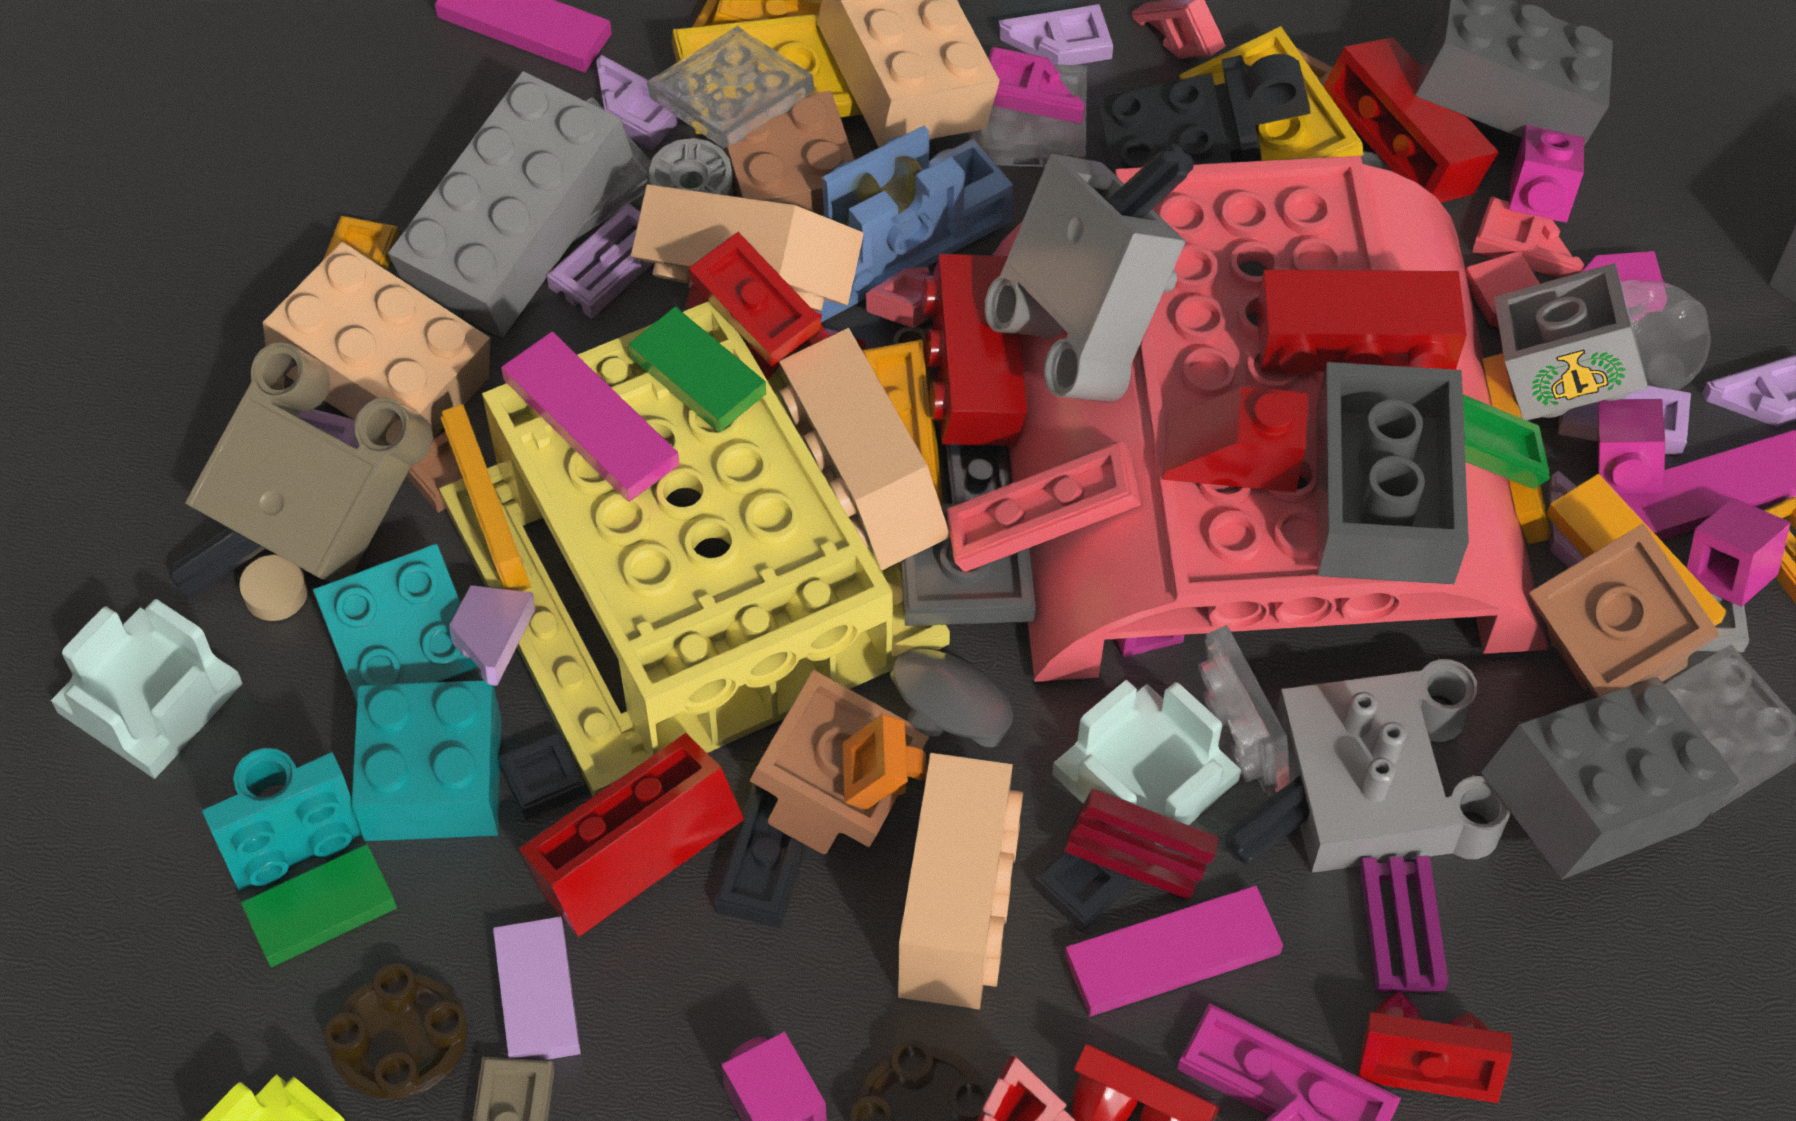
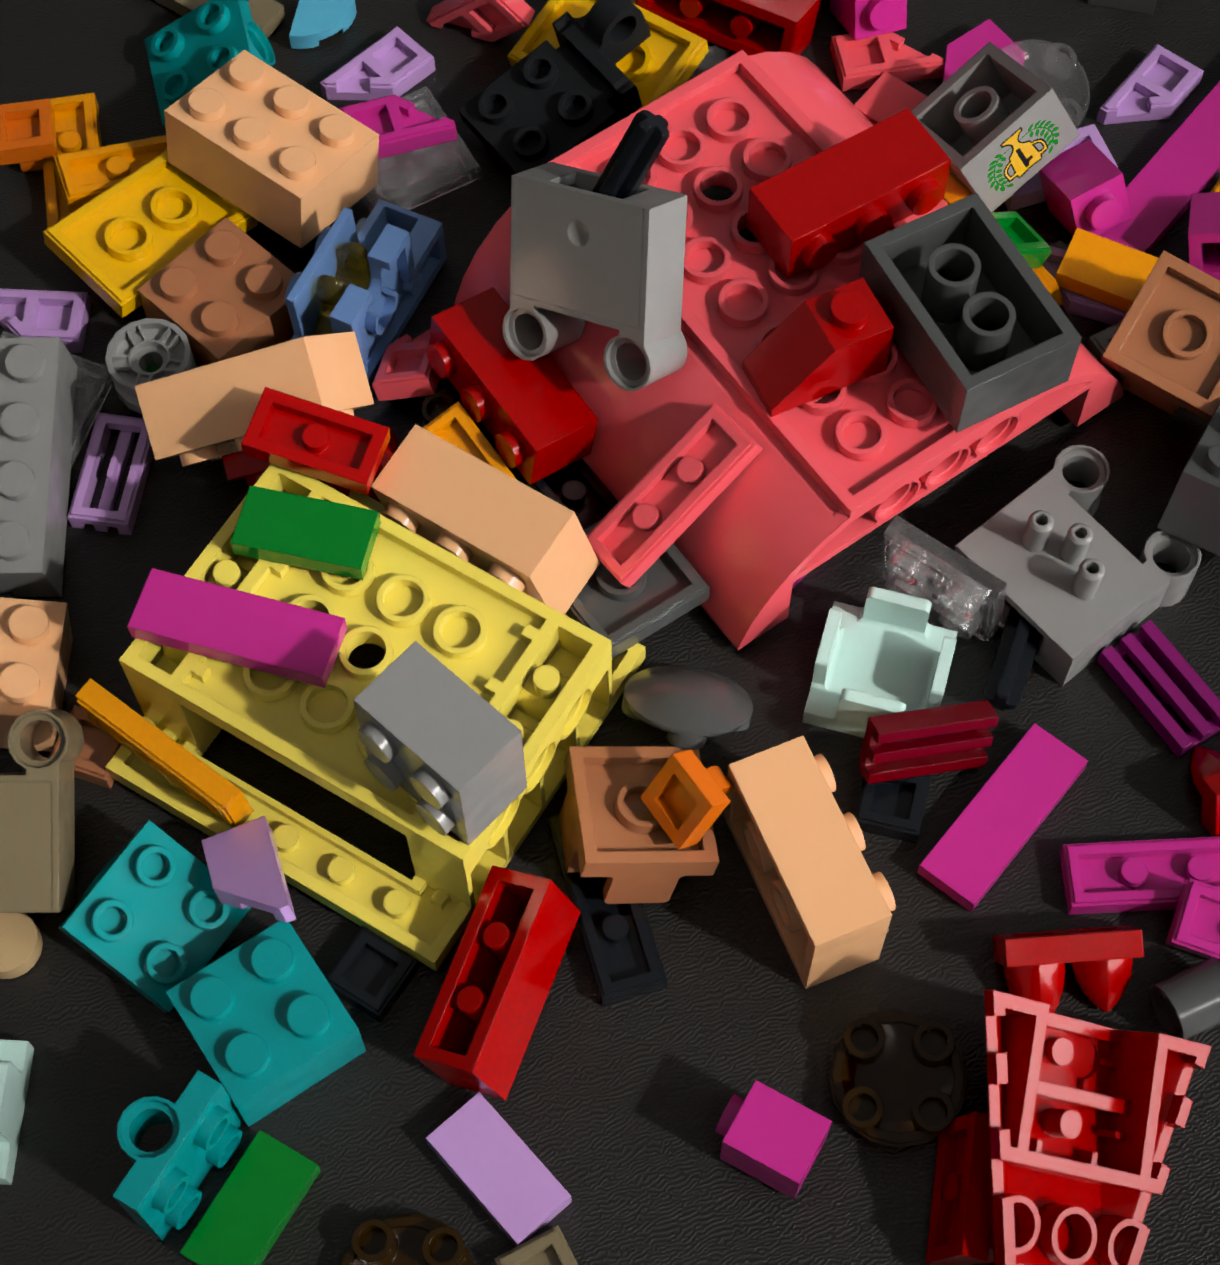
camera: 30 degrees left, 5 degrees up
(673, 589) = (440, 744): none -> light grey brick
(731, 87) = (140, 258): clear tile -> none

